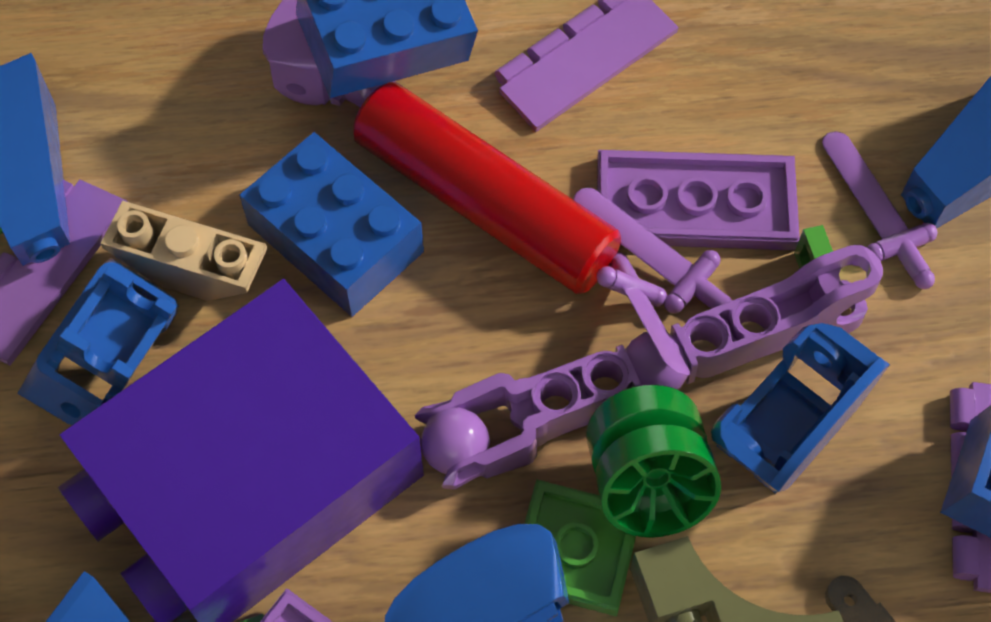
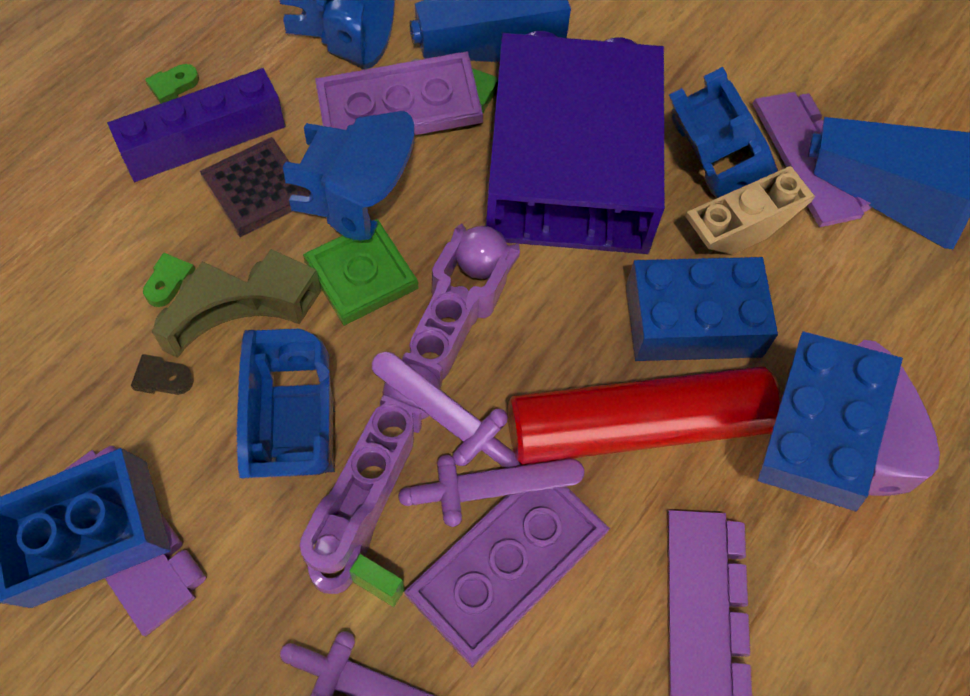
camera: 130 degrees right, 0 degrees up
(652, 461) = (366, 325): green wheel -> none

